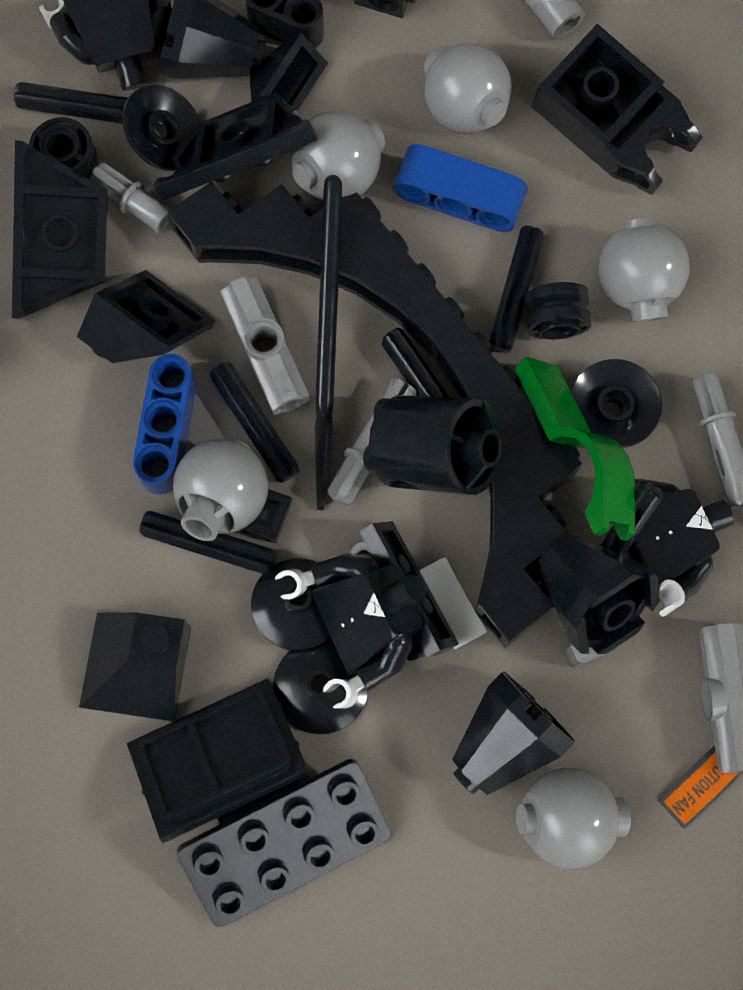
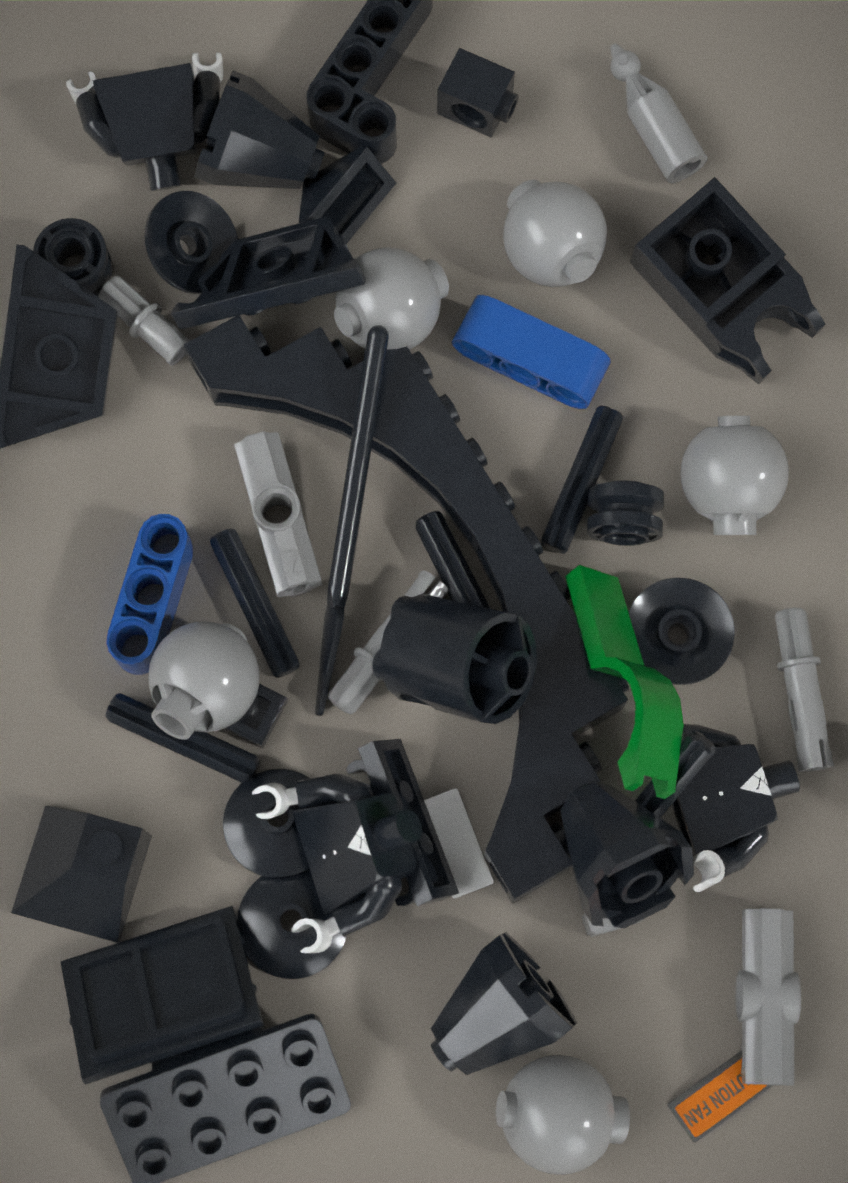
camera: 10 degrees right, 0 degrees up
(69, 102) = (88, 198): black axle -> none
(140, 319) = (138, 468): black slope -> none

